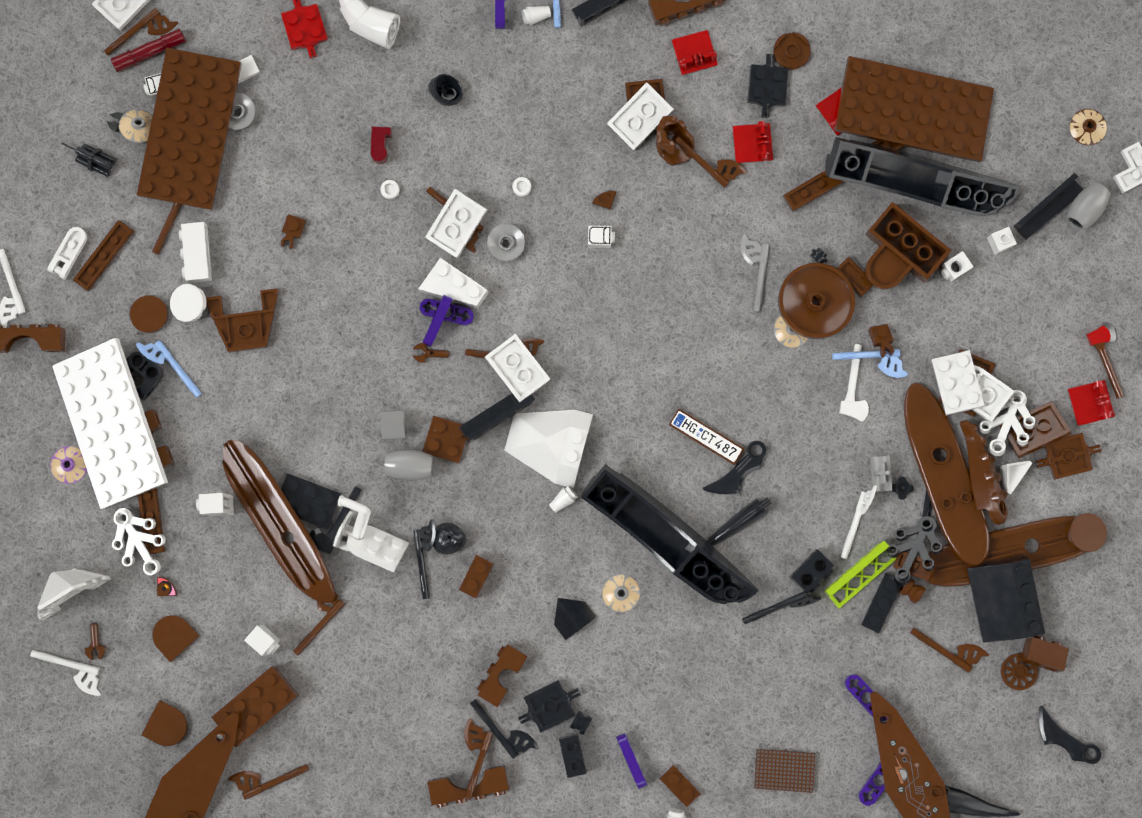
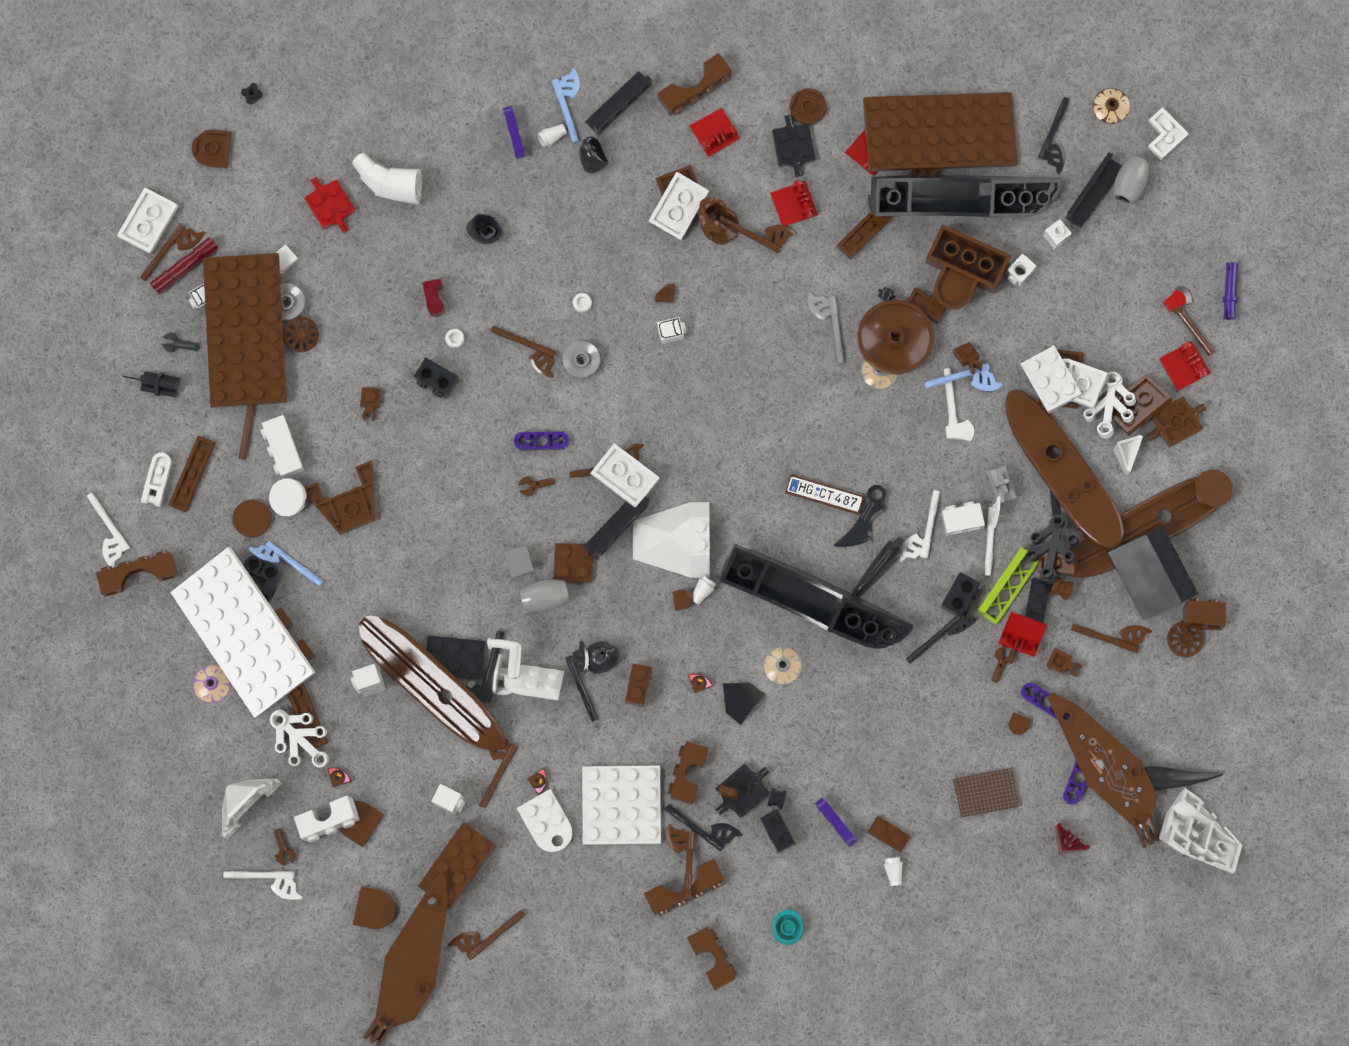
camera: 15 degrees left, 5 degrees down
(132, 131) = (188, 346): tan dish -> none
(159, 627) = (342, 815): none -> white arch
(243, 146) = (301, 334): none -> reddish brown wheel
(353, 683) = (545, 820): none -> white plate
(356, 643) = (538, 781): none -> tile
(364, 221) = (438, 374): none -> black brick
(429, 688) = (621, 805): none -> white plate
(437, 320) = (535, 450): dark purple beam -> none
(449, 281) = (541, 413): white wedge -> none
(456, 223) = (528, 353): white plate -> none
(534, 706) = (728, 792): none -> reddish brown tile
(536, 588) = (699, 682): none -> reddish brown tile
(541, 503) = (682, 599): none -> reddish brown tile
(565, 48) = (589, 160): none -> black hair
(791, 510) = (925, 543): none -> white piece
(833, 648) = (1001, 663): none -> reddish brown bar
(834, 496) = (962, 518): none -> white brick
(834, 712) = (1018, 724): none -> reddish brown tile
(861, 626) = (1022, 634): none -> red hinge
(892, 662) = (1060, 662): none -> reddish brown plate
(907, 488) = (1024, 488): black plate -> none
(983, 475) = (1100, 461): reddish brown animal -> none
(1015, 149) = (1044, 154): none -> black piece
(1054, 734) = (1234, 690): black piece -> none

